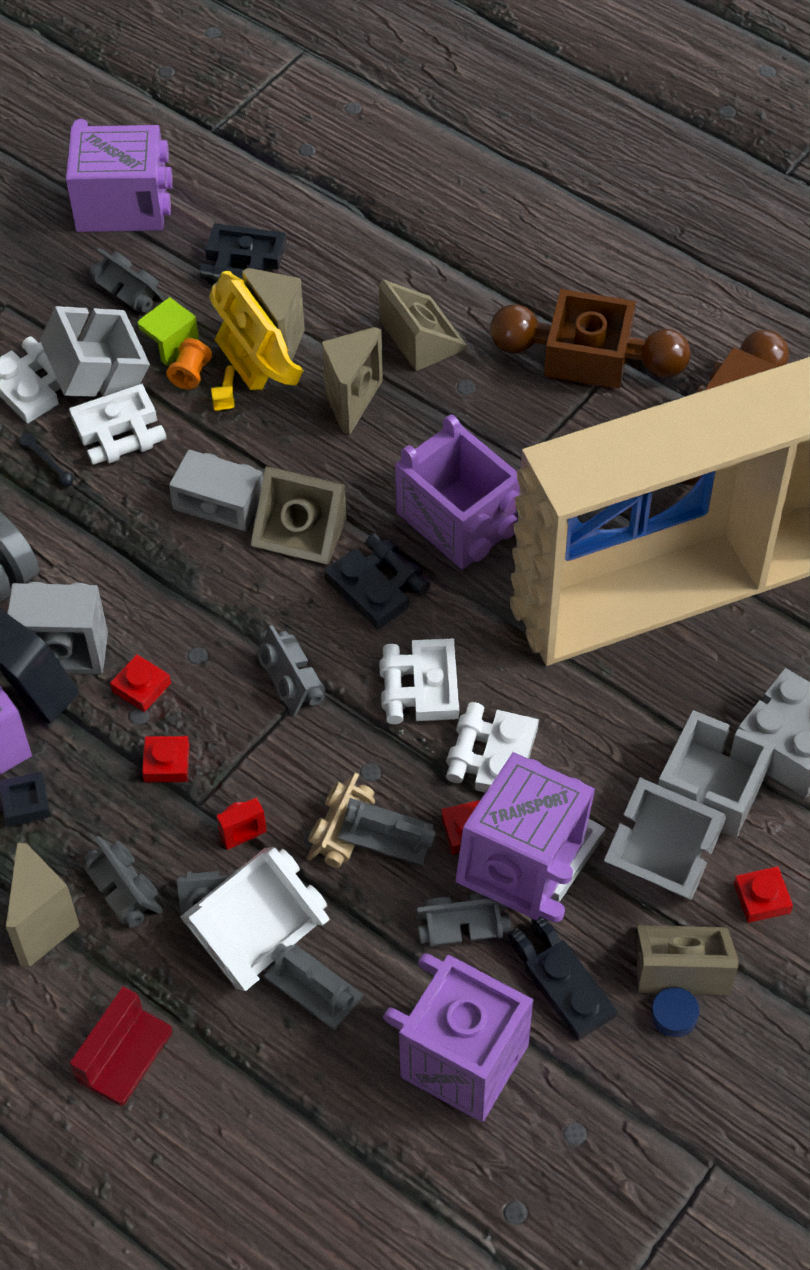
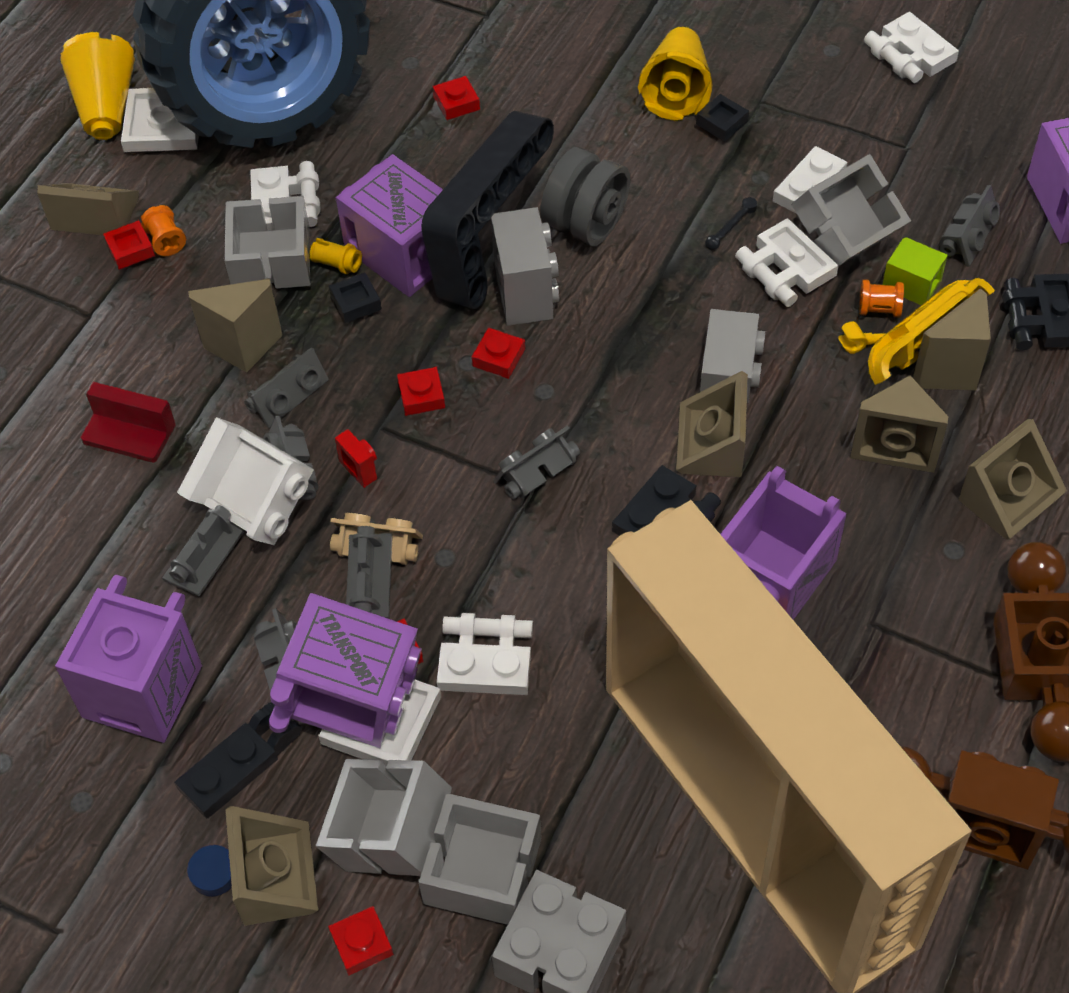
camera: 80 degrees right, 0 degrees up
(434, 681) = (554, 583): white plate -> none

